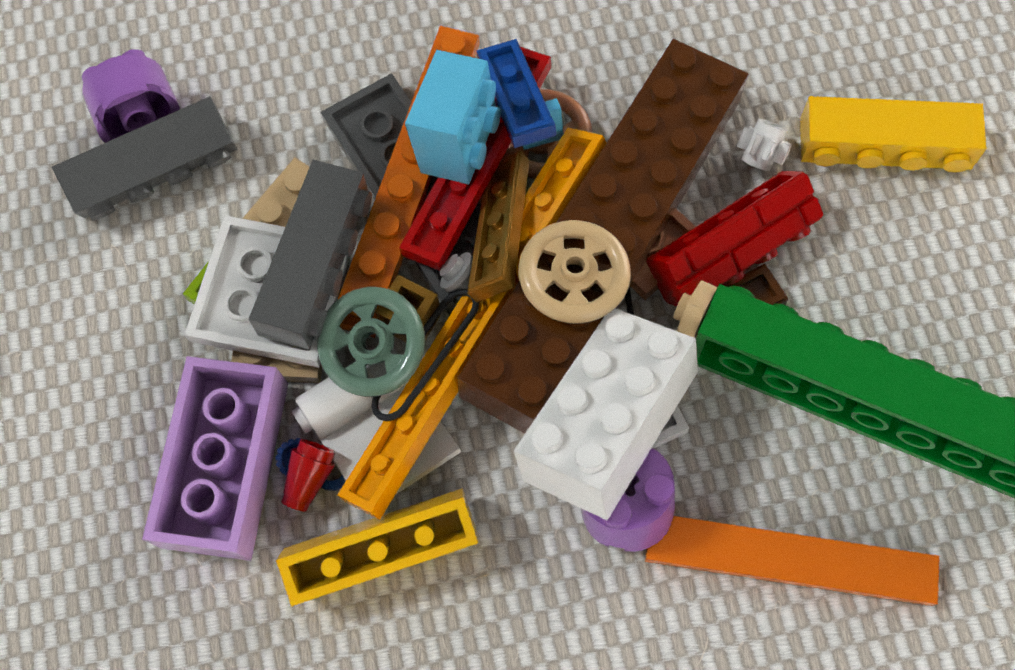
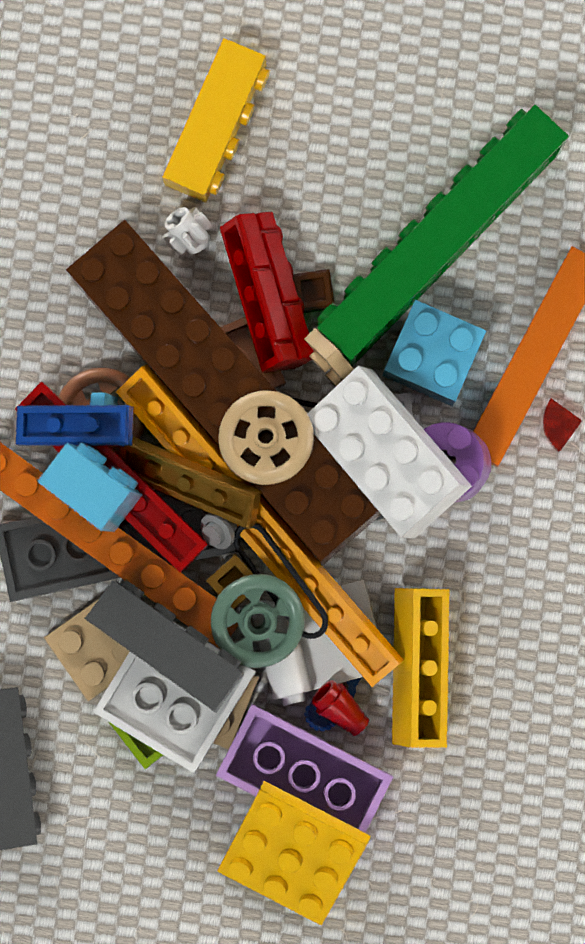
camera: 75 degrees left, 15 degrees up
(124, 474) = (293, 853): none -> yellow plate
(723, 616) = (558, 424): none -> clear red tile
(746, 438) = (434, 353): none -> medium azure brick

